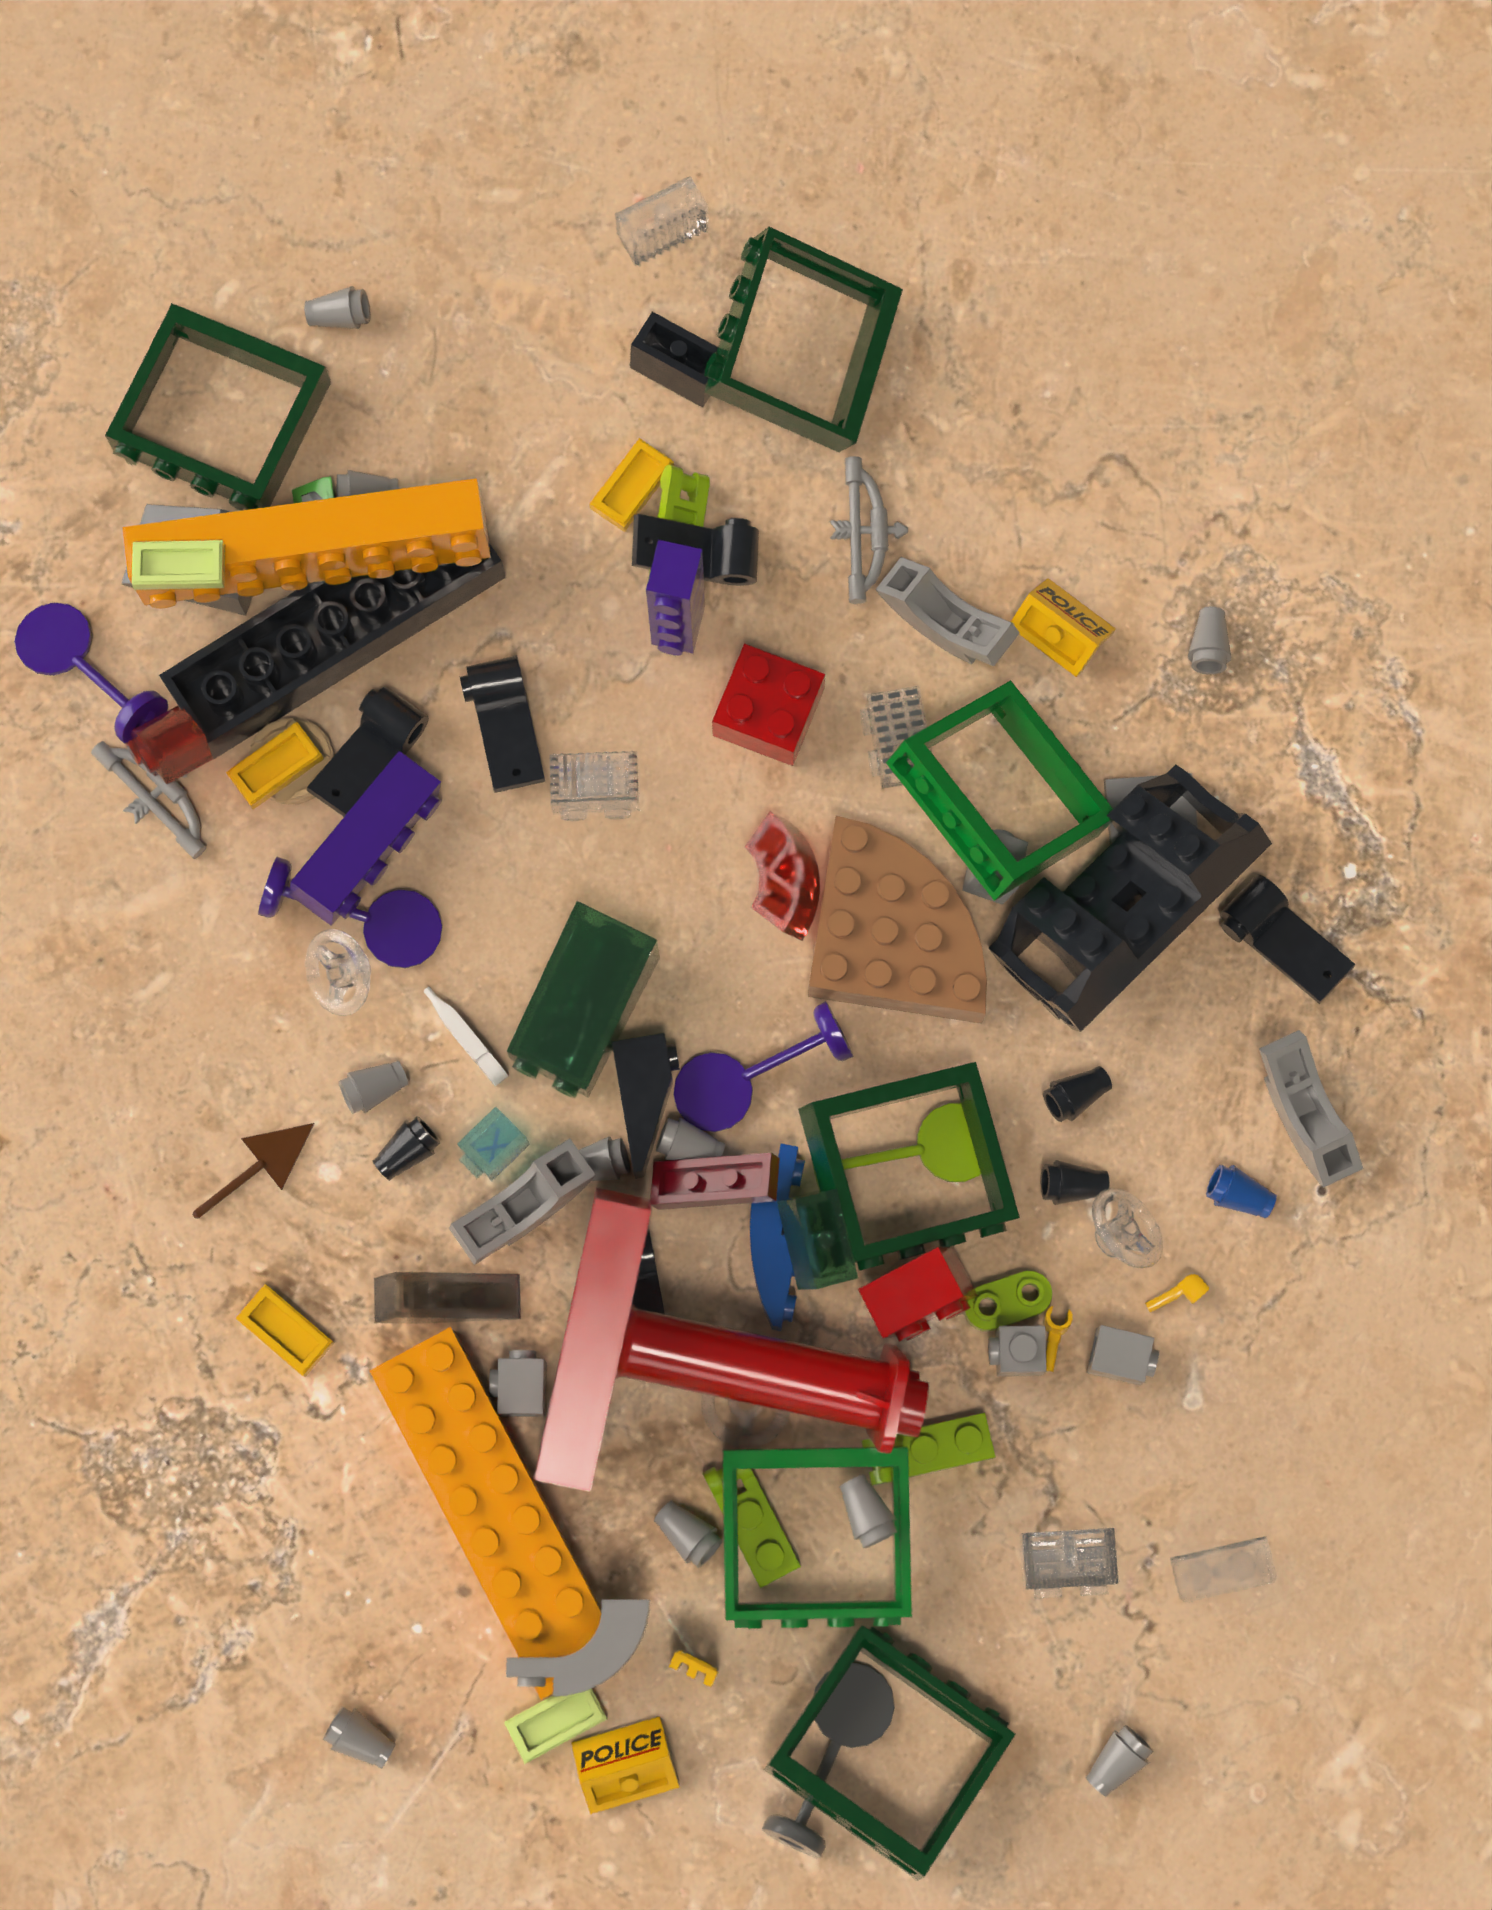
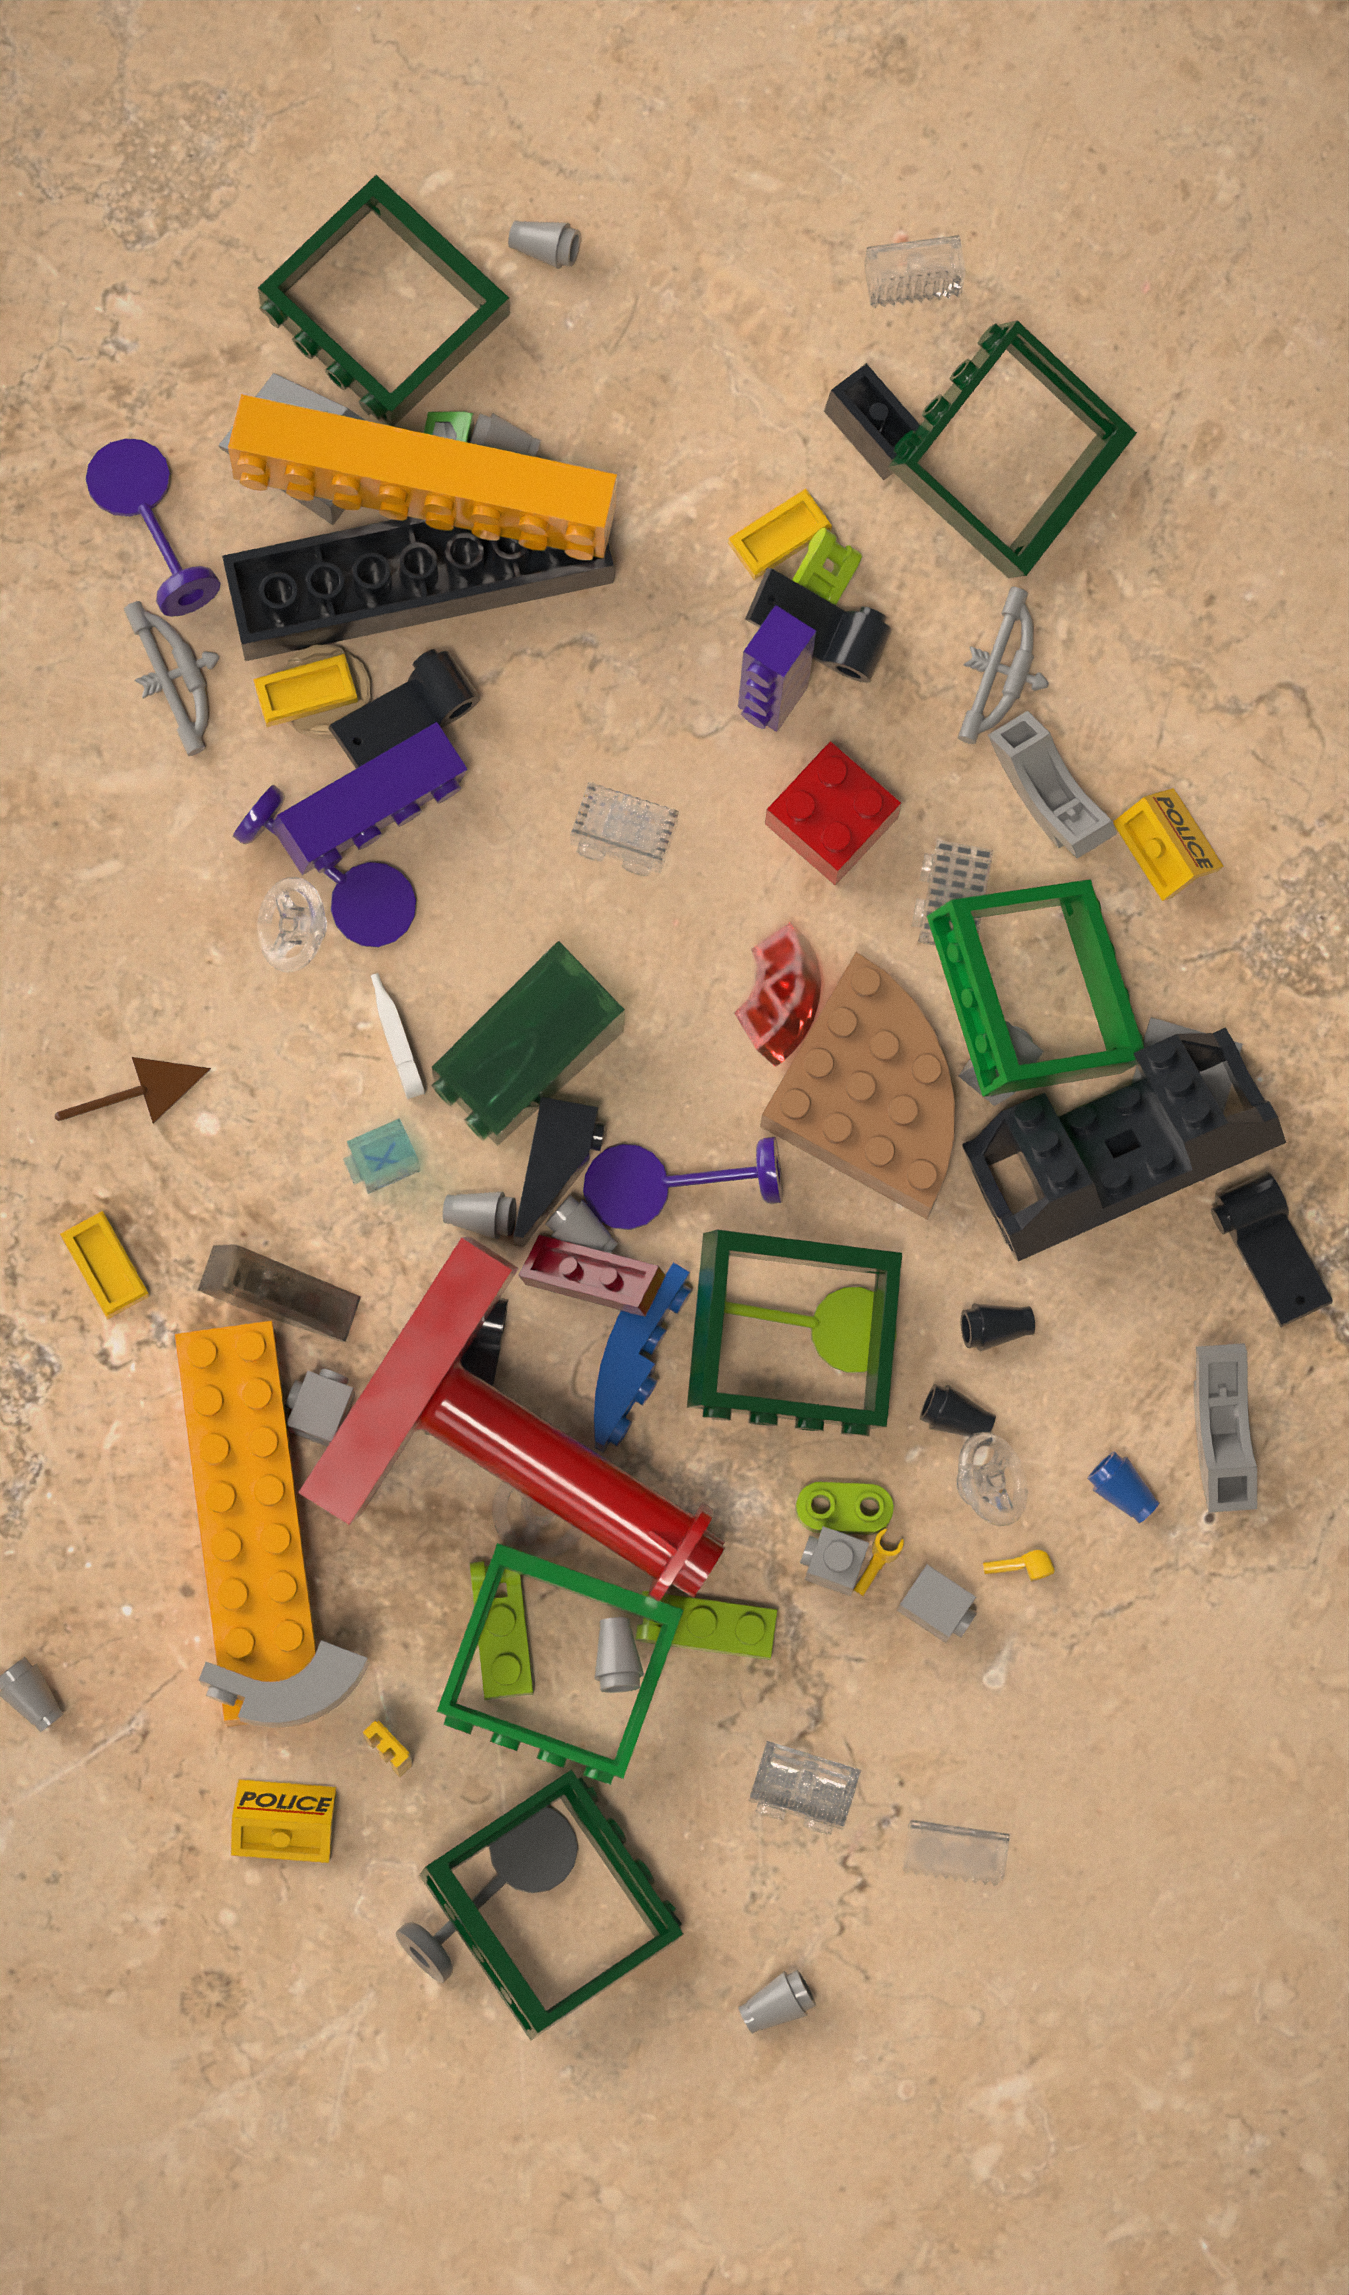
camera: 15 degrees right, 0 degrees up
(169, 745) = (206, 631): clear red brick -> none
(178, 564) = (283, 453): yellowish green tile -> none
(372, 1085) = (283, 1052): light grey cone -> none
(406, 1148) = (294, 1128): black cone -> none
(504, 723) = (555, 732): black door -> none
(525, 1203) = (394, 1227): light grey arch -> none
(554, 1722) = (230, 1752): yellowish green tile -> none
(689, 1534) = (433, 1619): light grey cone -> none
(817, 1239) = (671, 1369): clear green brick -> none
(918, 1293) = (754, 1463): red brick -> none
(1210, 642) = (1314, 917): light grey cone -> none

